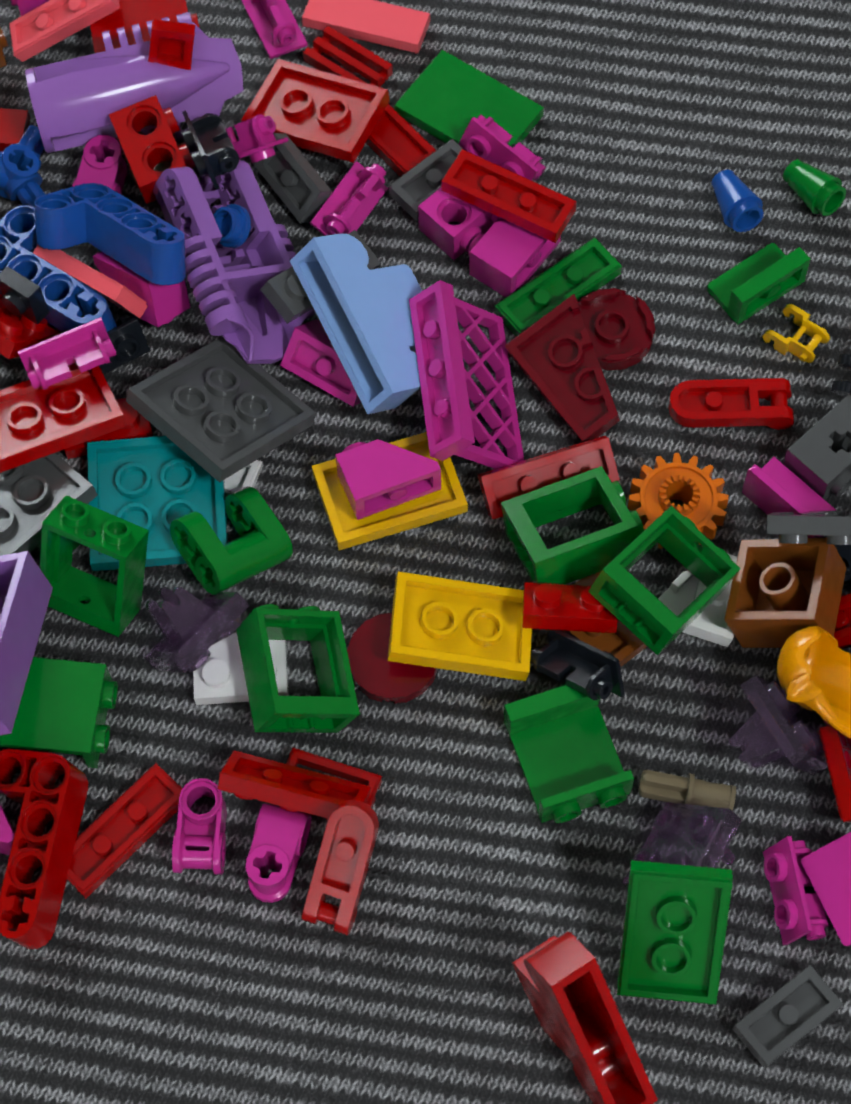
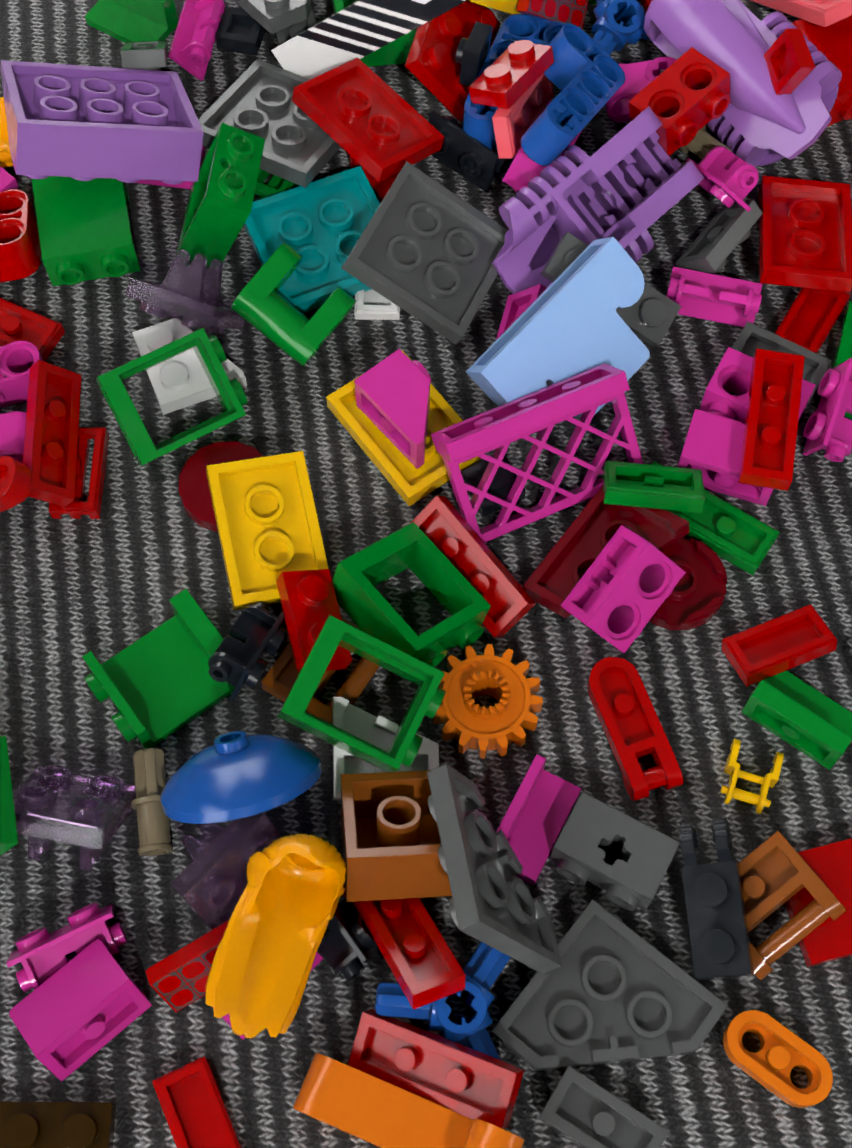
camera: 70 degrees right, 0 degrees up
(49, 360) = (439, 114): dark pink hinge -> none
(67, 270) = (511, 74): none -> red plate
(210, 146) = (700, 139): black hinge -> none
(233, 224) = (622, 188): blue plate -> none
(535, 310) = (653, 486): none -> green tile
(621, 360) = (623, 588): none -> dark pink brick
(693, 275) = (778, 645): none -> red tile
(707, 700) = (239, 778): none -> blue dish

